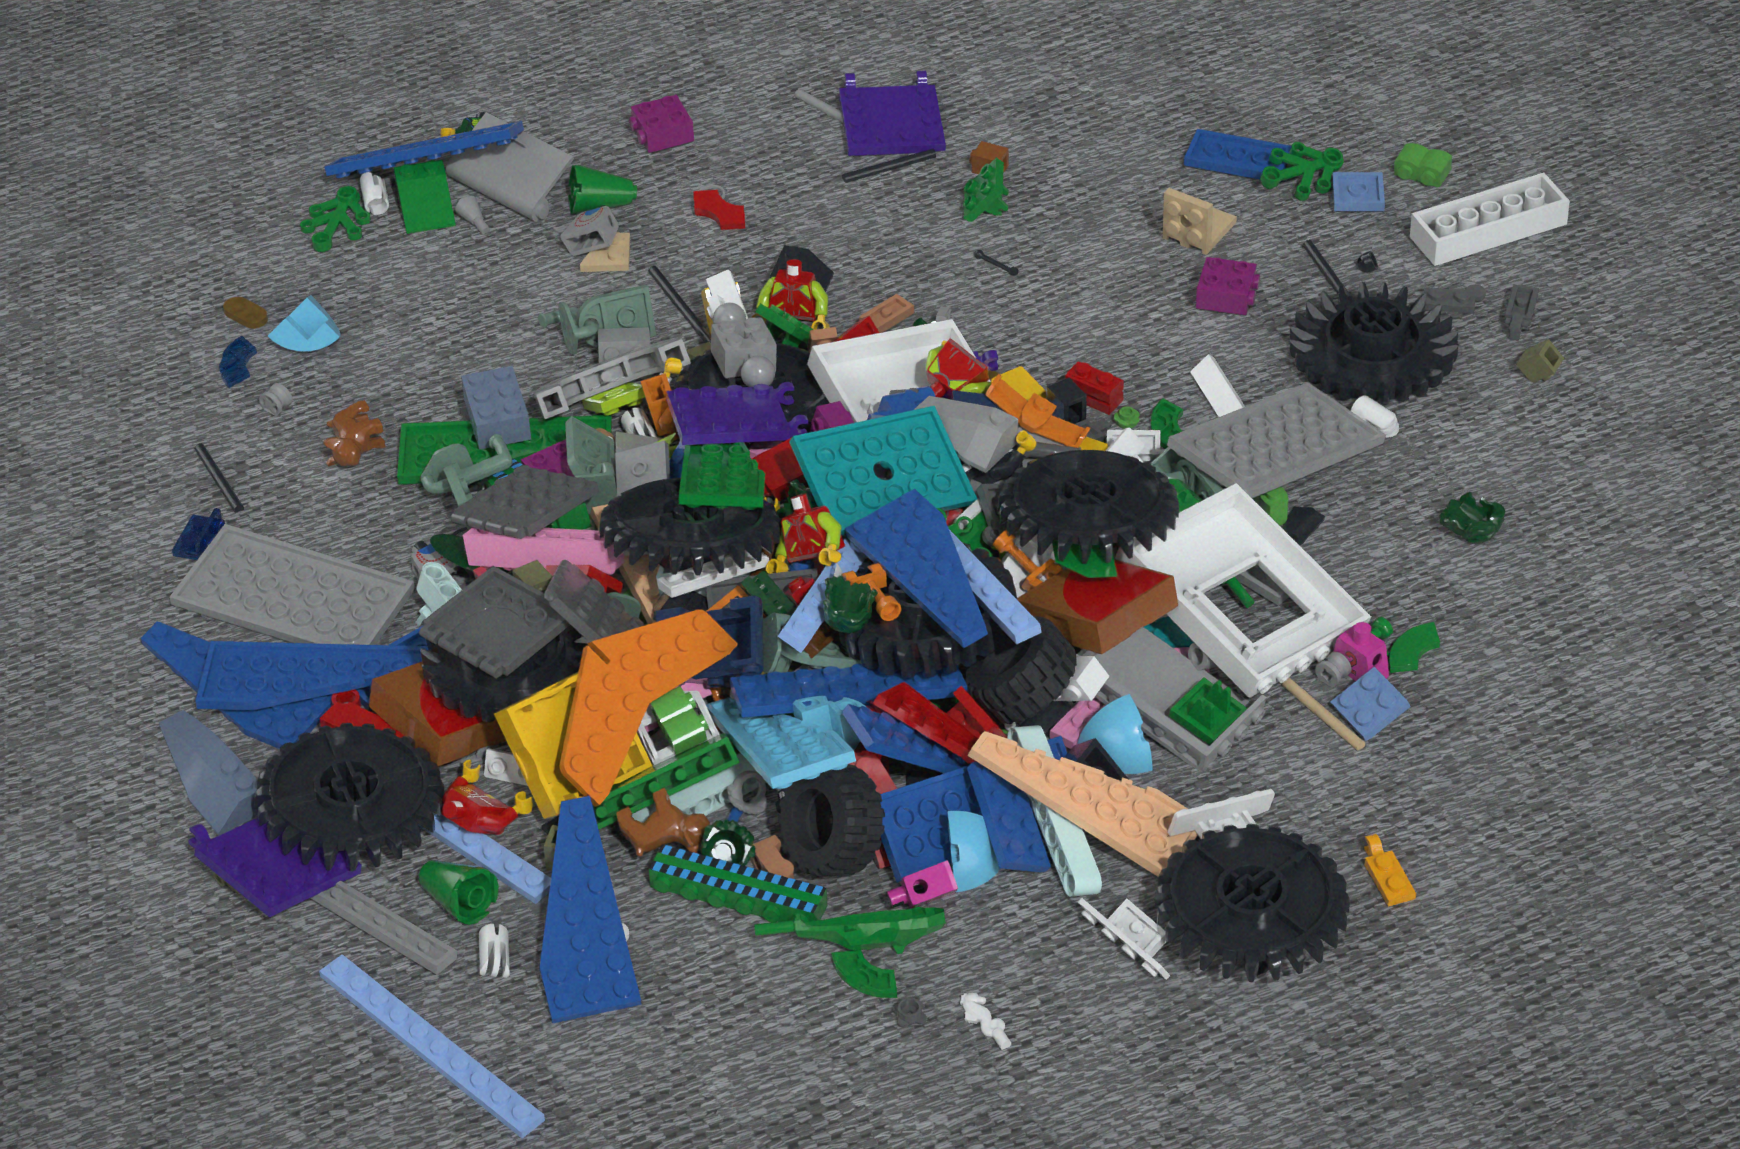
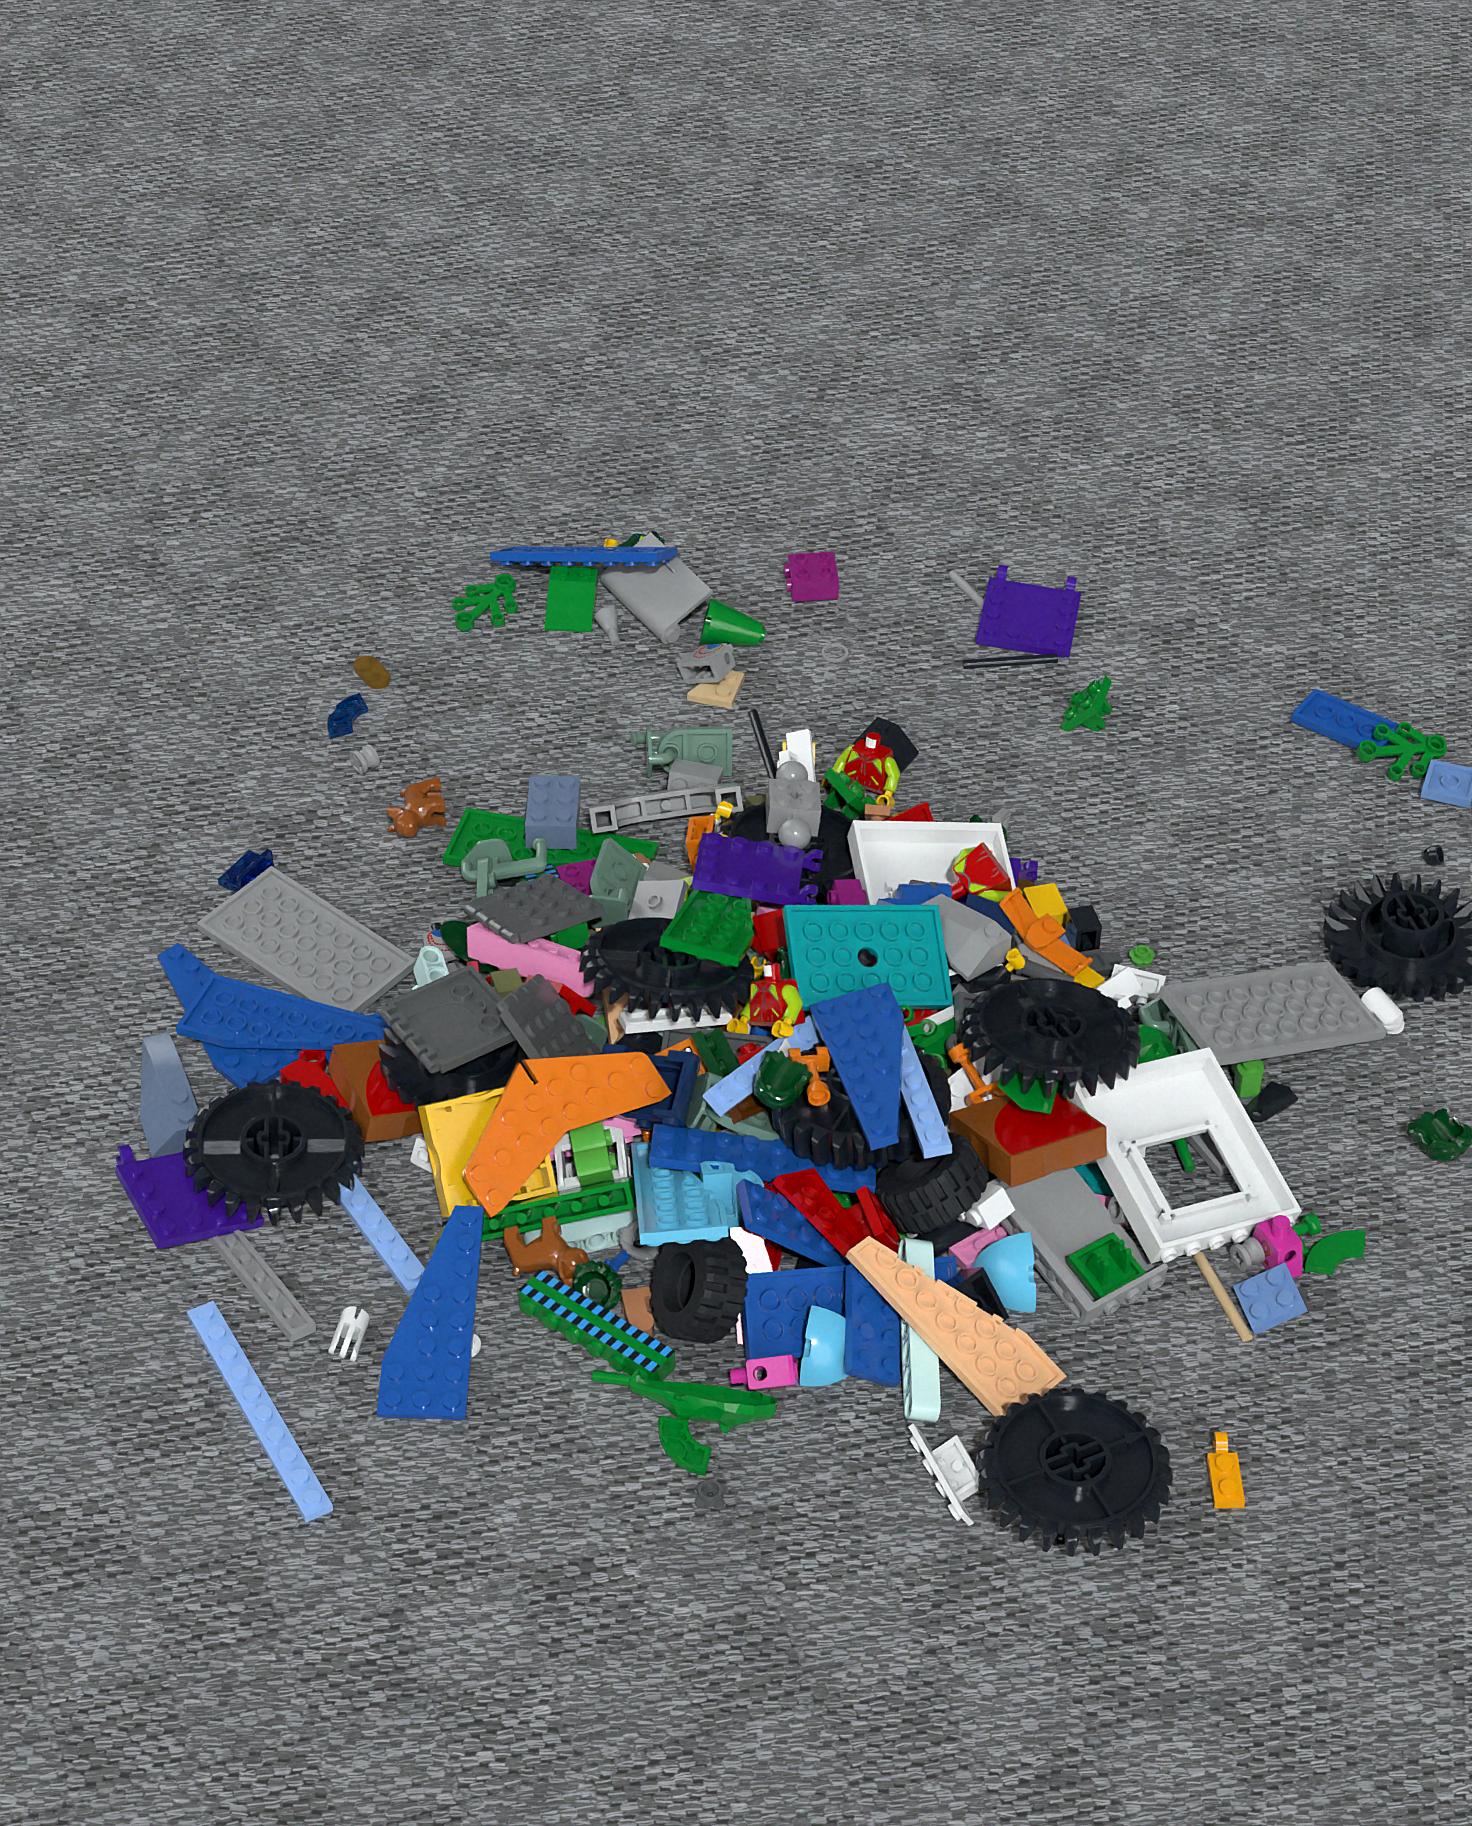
camera: 15 degrees right, 0 degrees up
(218, 477) = (287, 821): black bar -> none
(306, 328) = (417, 699): medium azure brick -> none
(374, 193) = (528, 586): white arm -> none
(460, 889) = (341, 1266): green cone -> none
(477, 809) = (385, 1191): red torso -> none
(610, 400) = (660, 829): lime plate -> none
(638, 424) = (678, 858): white arm -> none
(711, 205) = (830, 664): red tile -> none
(890, 312) = (952, 803): nougat plate -> none
(977, 1013) = (775, 1512): white animal -> none
(979, 254) = (1088, 788): black hinge -> none
(986, 153) = (1106, 667): dark orange brick -> none
(1102, 388) = (1120, 919): red brick -> none
(1165, 418) = (1179, 965): green tile -> none
(1194, 221) = (1272, 777): tan bracket -> none
(1216, 386) = (1239, 945): white tile -> none
(1216, 815) = (1088, 1375): white bracket -> none
(1227, 286) = (1285, 848): magenta brick -> none
(1323, 265) = (1390, 850): black bar -> none

